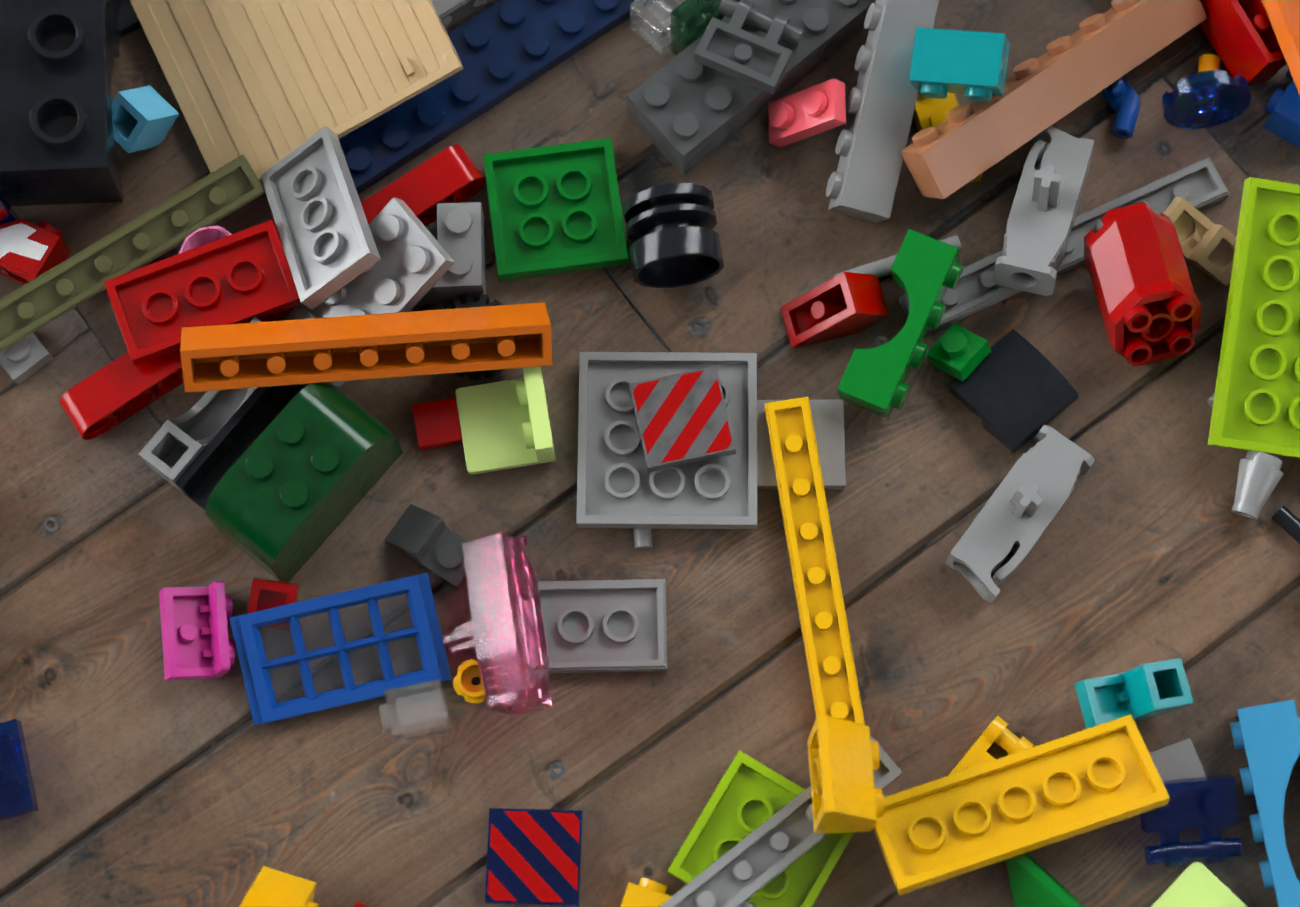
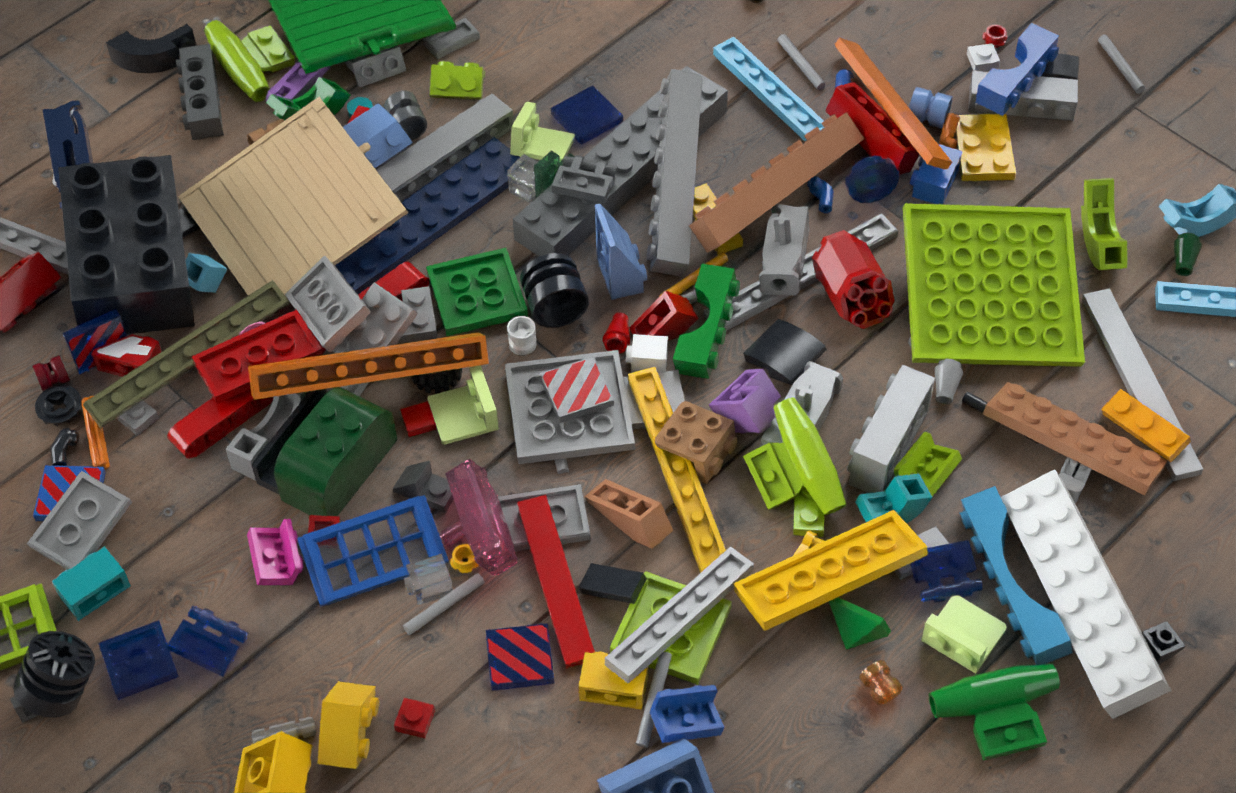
camera: 10 degrees left, 20 degrees down
(77, 775) = (204, 647): none -> clear blue plate
(434, 750) = (443, 604): none -> light grey bar
(604, 742) = (555, 580): none -> red tile
(612, 293) = (522, 335): none -> white wheel
(687, 762) = (612, 583): none -> black tile
(731, 642) = (631, 512): none -> nougat slope
(760, 321) = (617, 333): none -> red cone
(782, 188) = (617, 257): none -> medium blue slope
(801, 367) = (648, 352): none -> white brick
(807, 113) = (633, 211): coral plate -> none
(843, 776) = (714, 560): yellow slope -> none
(852, 533) = (699, 437): none -> medium nougat bracket
(893, 232) = (691, 279): none -> light orange bar
(936, 486) = (748, 402): none -> medium lavender brick
(958, 352) = (746, 334): green plate -> none
(959, 63) = (716, 166): teal brick -> none
(995, 607) = (796, 463): none -> lime plate
(1003, 670) = (807, 515): none -> lime plate
(1158, 563) = (890, 430): none -> brick
(1197, 631) = (930, 461): none -> lime bracket
(1203, 242) = (890, 258): tan slope -> none

